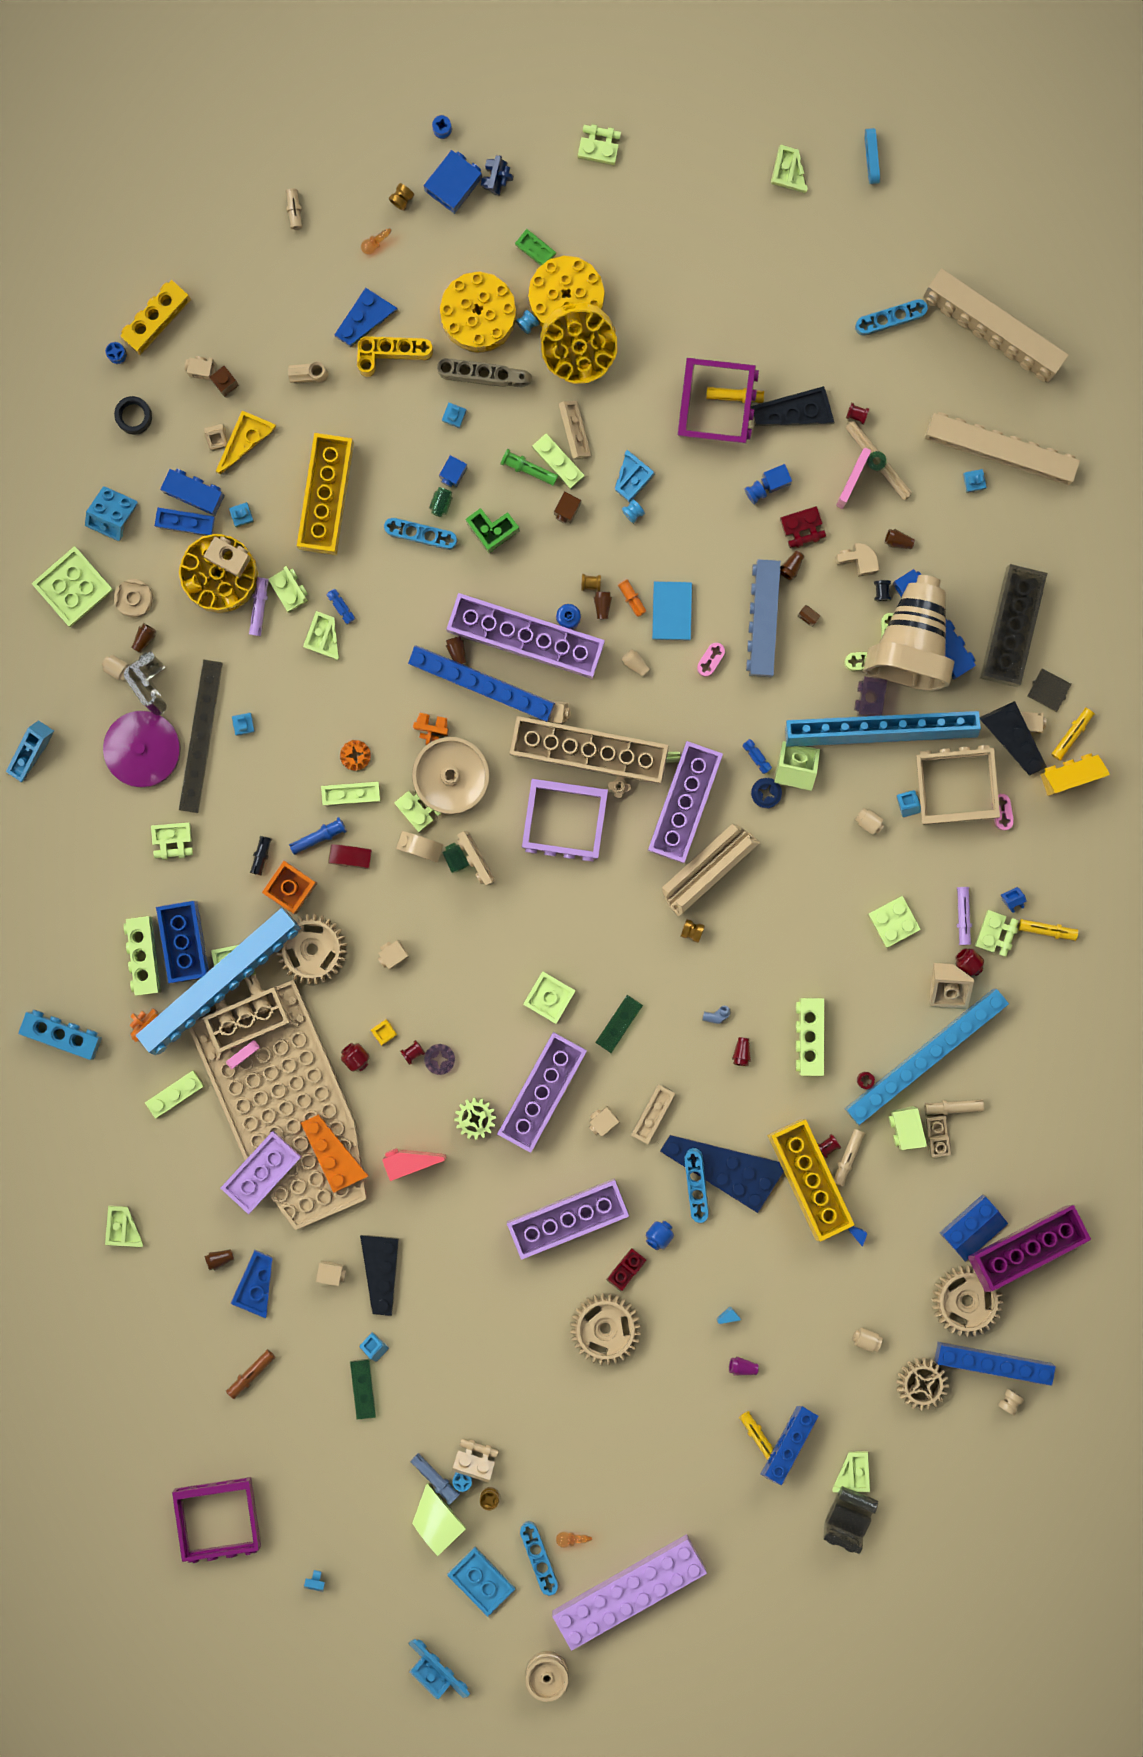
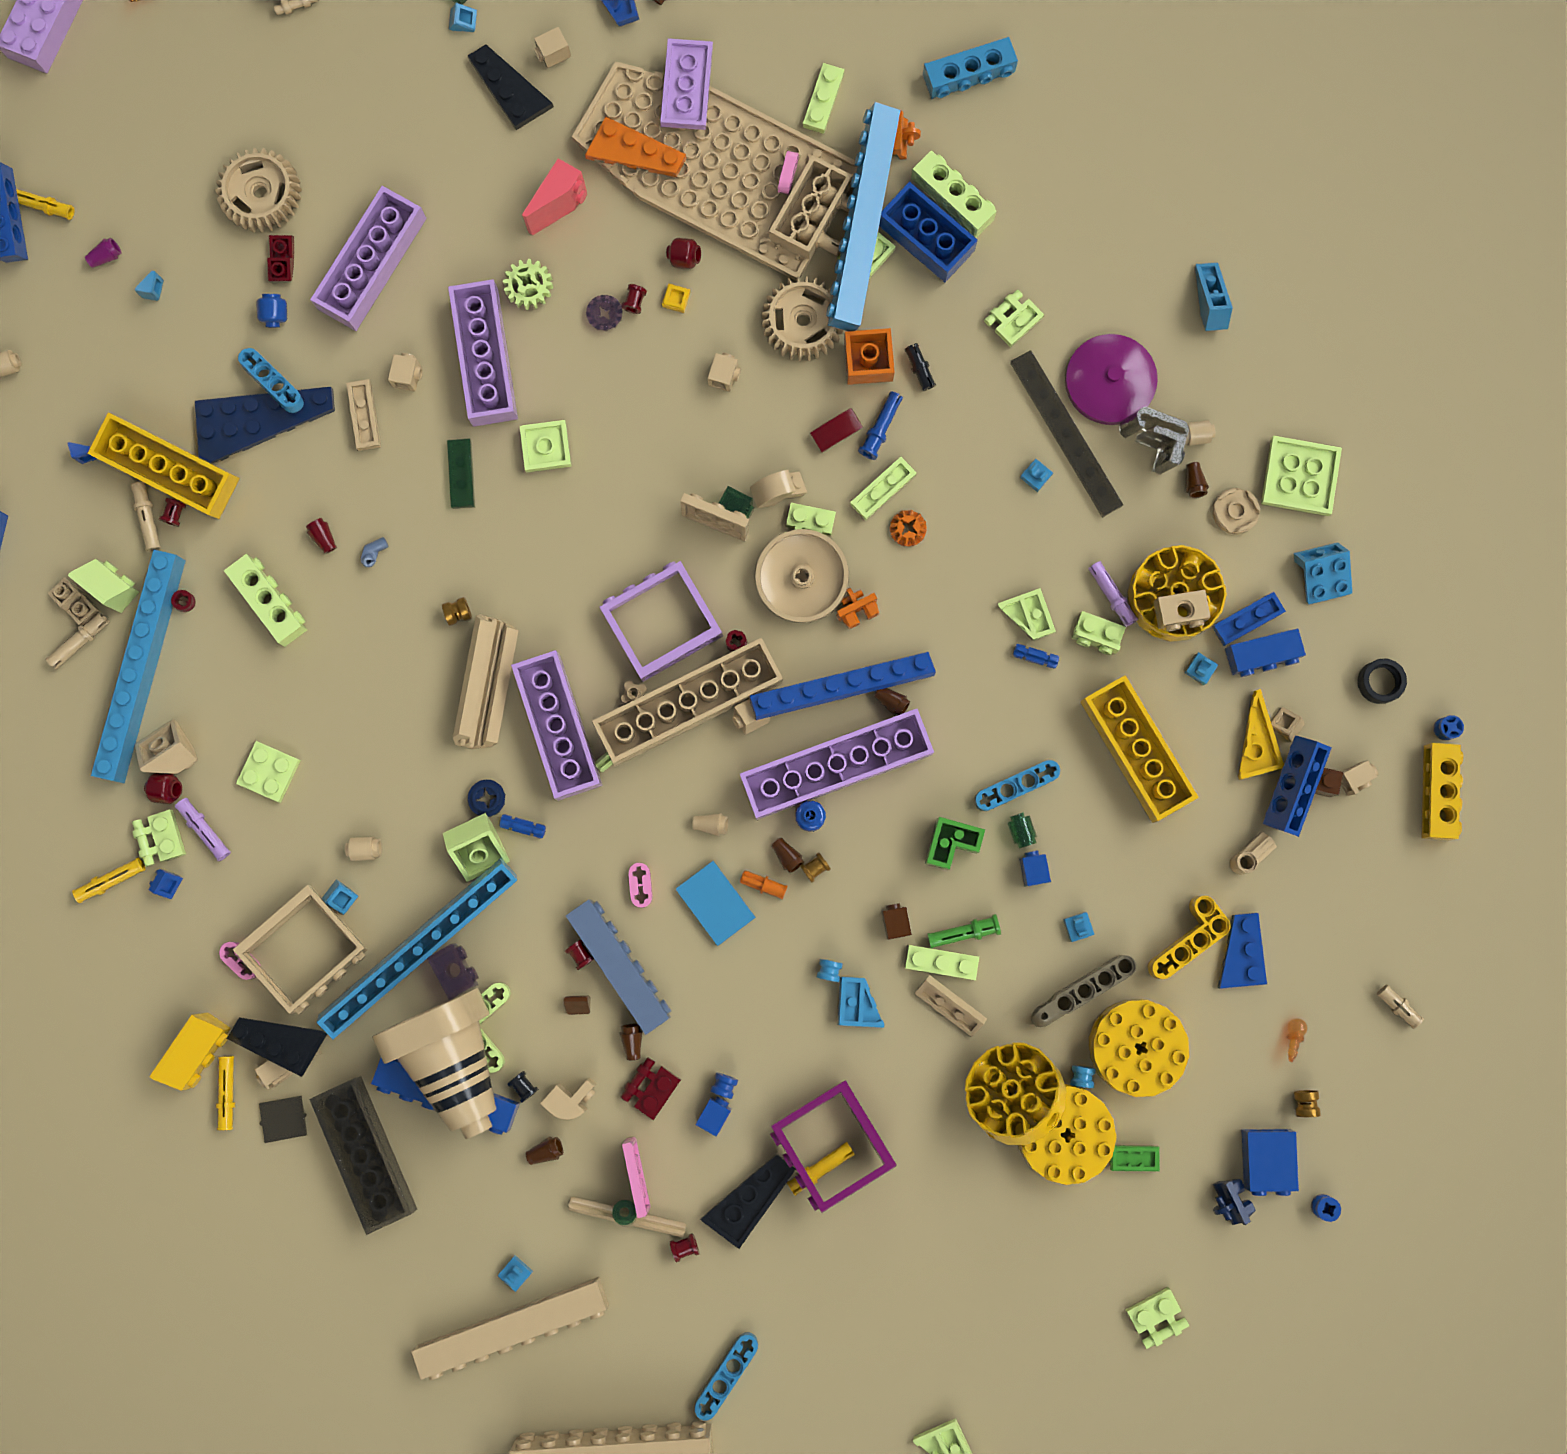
camera: 140 degrees right, 5 degrees down
(245, 391) = (1297, 785): none -> blue brick
(531, 771) = (739, 635): none -> dark red bush
(783, 645) = (579, 954): none -> dark red bush

